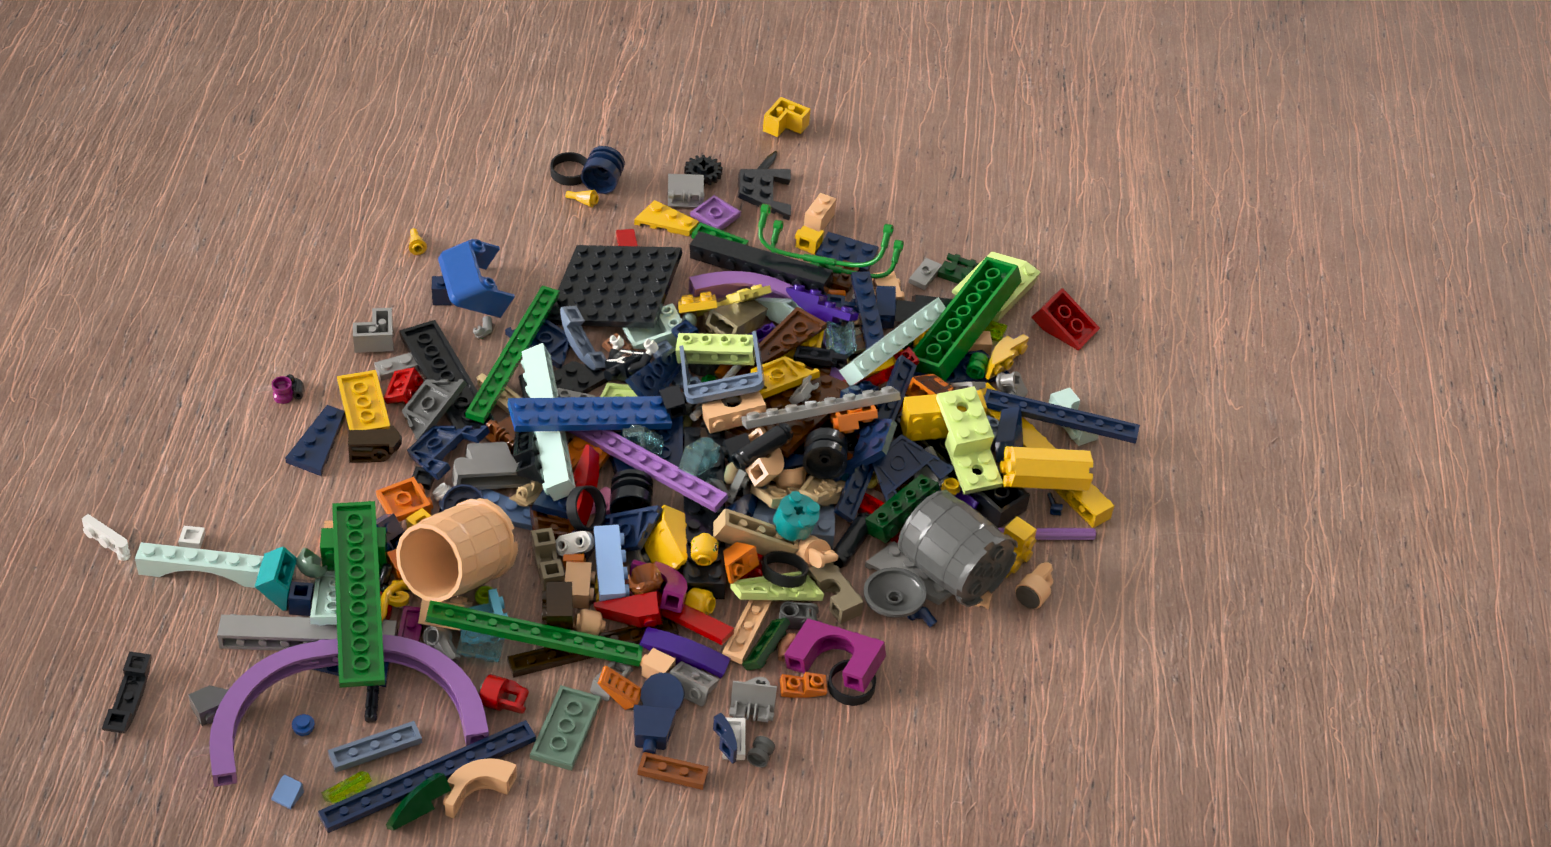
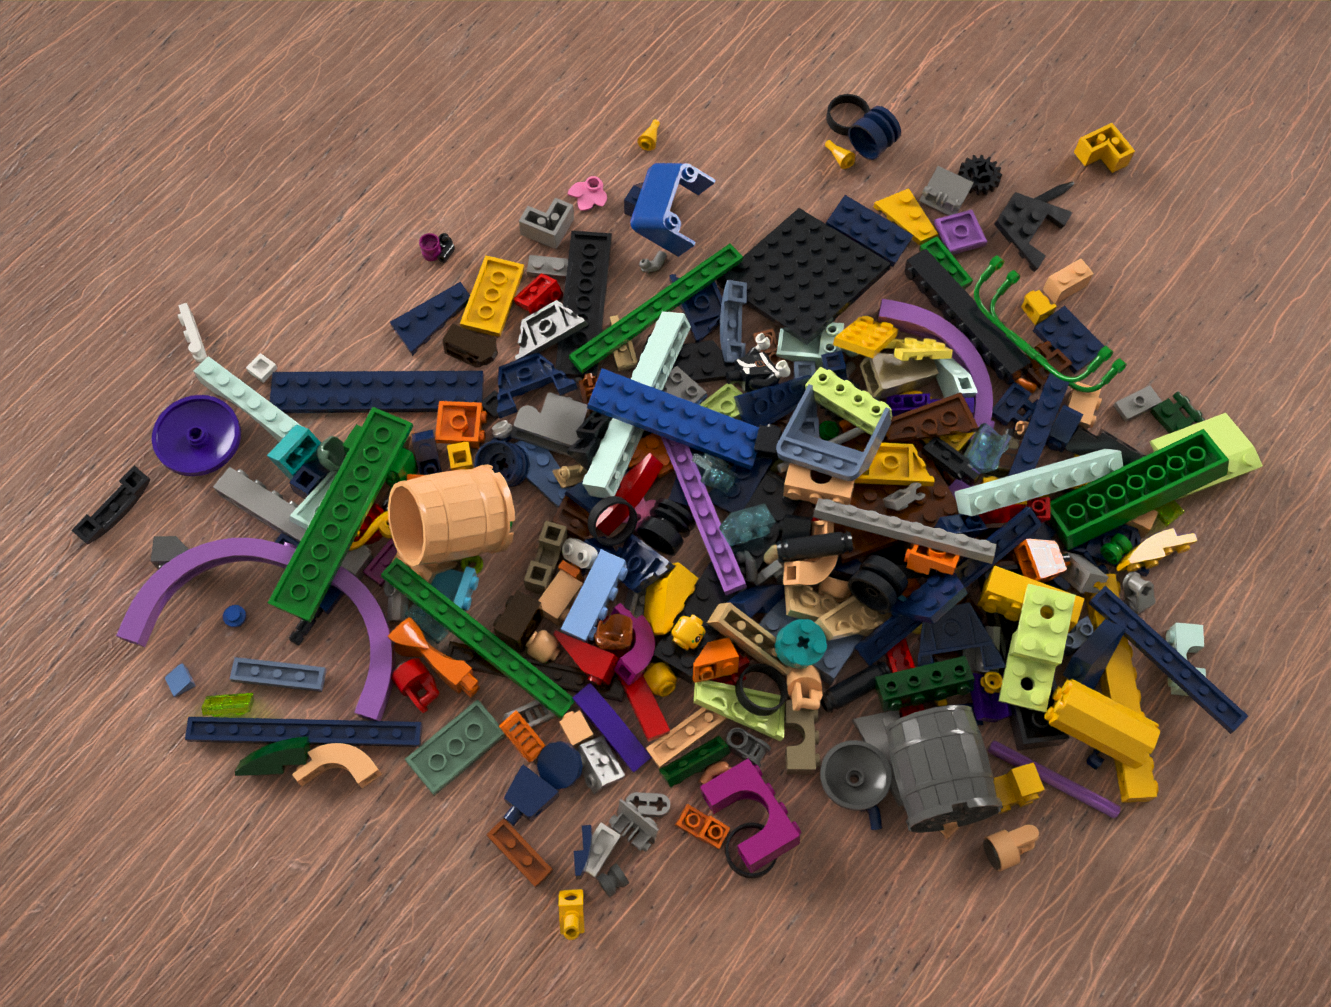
camera: 35 degrees right, 20 degrees up
(170, 607) = (196, 435): none -> dark purple dish
(302, 514) = (367, 389): none -> dark blue plate
(394, 299) = (588, 196): none -> bright pink plate
(528, 670) = (453, 672): none -> orange hips
(642, 235) = (869, 230): none -> dark blue plate
(746, 790) = (571, 914): none -> yellow bracket
(818, 306) = (985, 395): dark purple slope -> none
(1065, 320) = (1255, 536): red slope -> none

